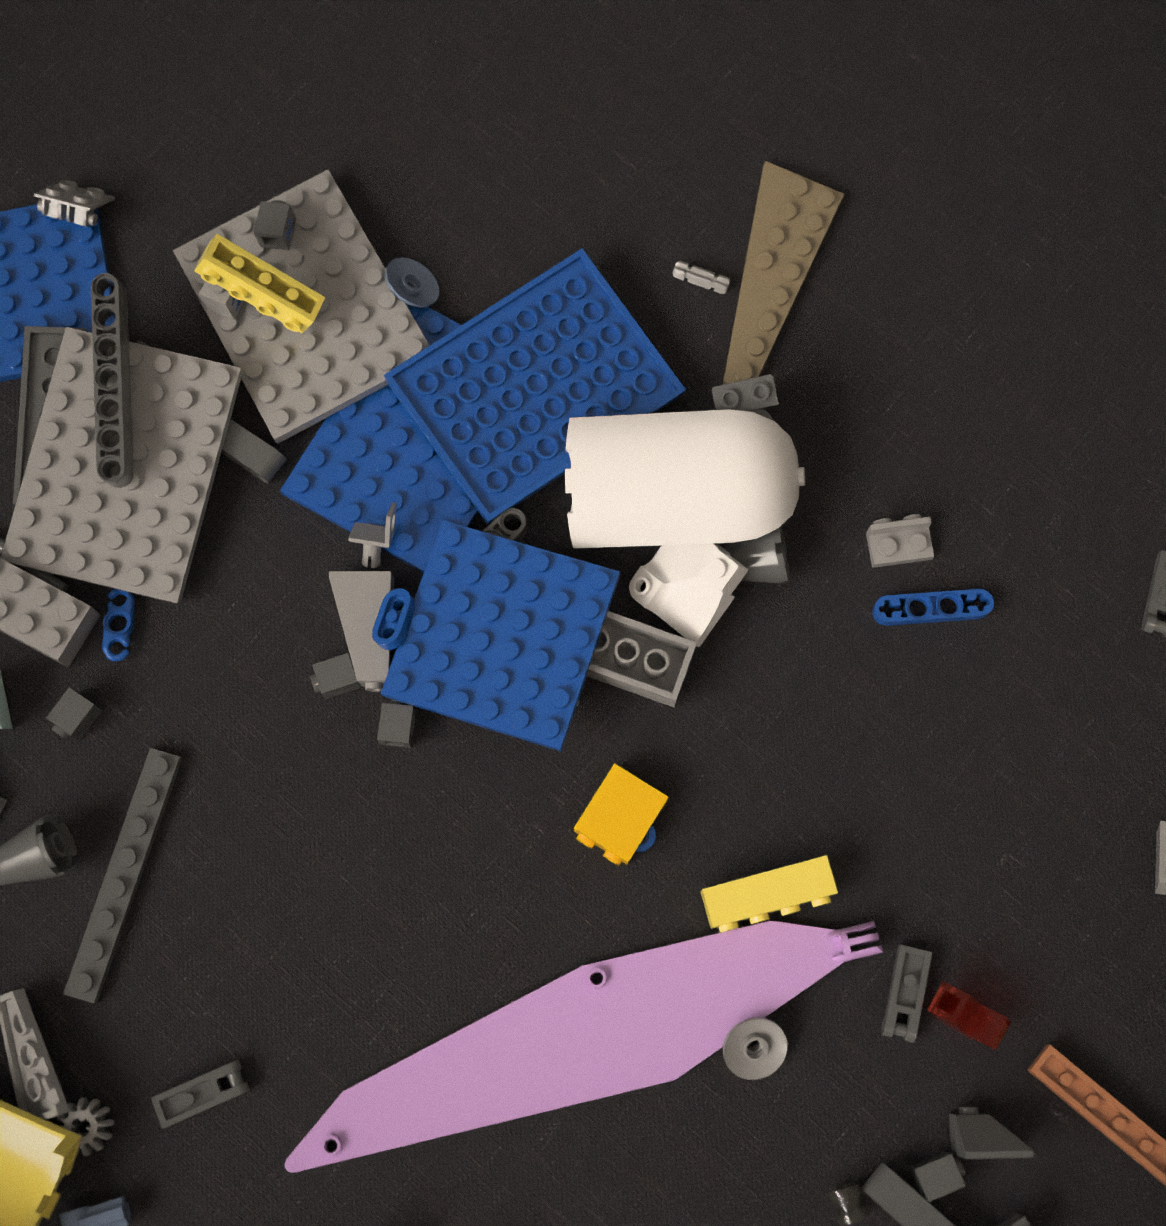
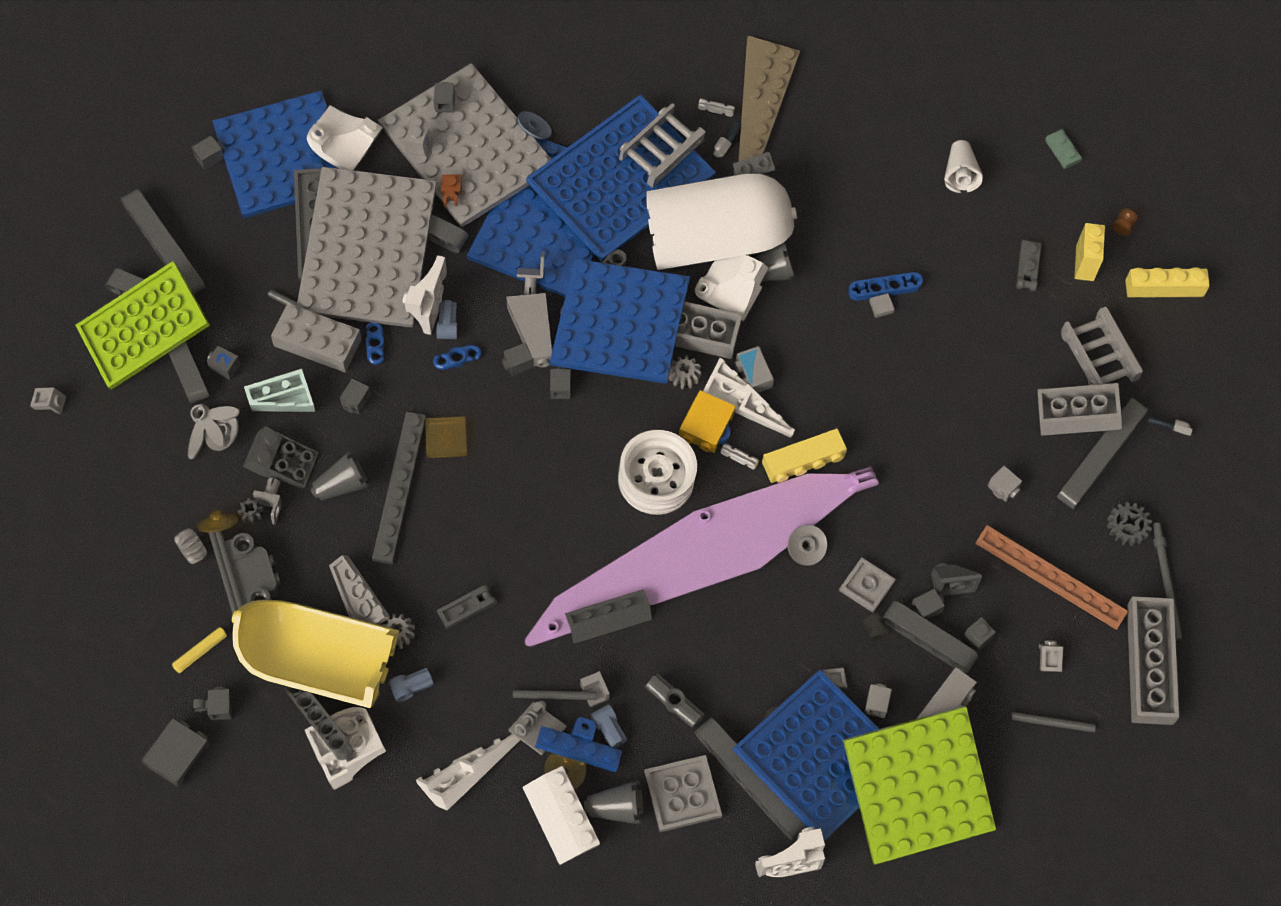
camera: 10 degrees left, 10 degrees down
(72, 202) = (305, 90): light grey hinge -> none
(103, 369) = (361, 201): dark grey beam -> none
(105, 251) = (342, 138): none -> white slope
(202, 565) = (425, 297): none -> white slope
(207, 795) = (446, 437): none -> clear yellow plate
(233, 608) = (447, 320): none -> sand blue piece
(254, 651) = (450, 363): none -> blue piece
(259, 284) = (444, 129): light yellow brick -> none
(265, 377) = (451, 187): none -> dark orange plate
(393, 621) = (552, 321): blue plate -> none
(421, 1136) = (609, 616): none -> dark grey panel
(560, 868) = (675, 451): none -> white wheel
(601, 716) = (684, 372): none -> light grey gear
(611, 368) = (668, 162): none -> light grey fence
(665, 877) = (739, 456): none -> light grey axle
(666, 767) = (731, 388): none -> white wedge
(705, 340) = (724, 142): none -> piece
(705, 734) = (754, 369): none -> light grey brick
(844, 1123) = (867, 584): none -> light grey tile
(900, 541) = (860, 249): light grey bracket -> none
(906, 992) = (896, 505): dark grey plate -> none
(923, 639) = (881, 305): none -> light grey tile
(968, 1017) = (932, 514): clear red brick -> none
(1080, 418) = (962, 168): none -> white cone
(1087, 975) = (1005, 484): none -> light grey brick

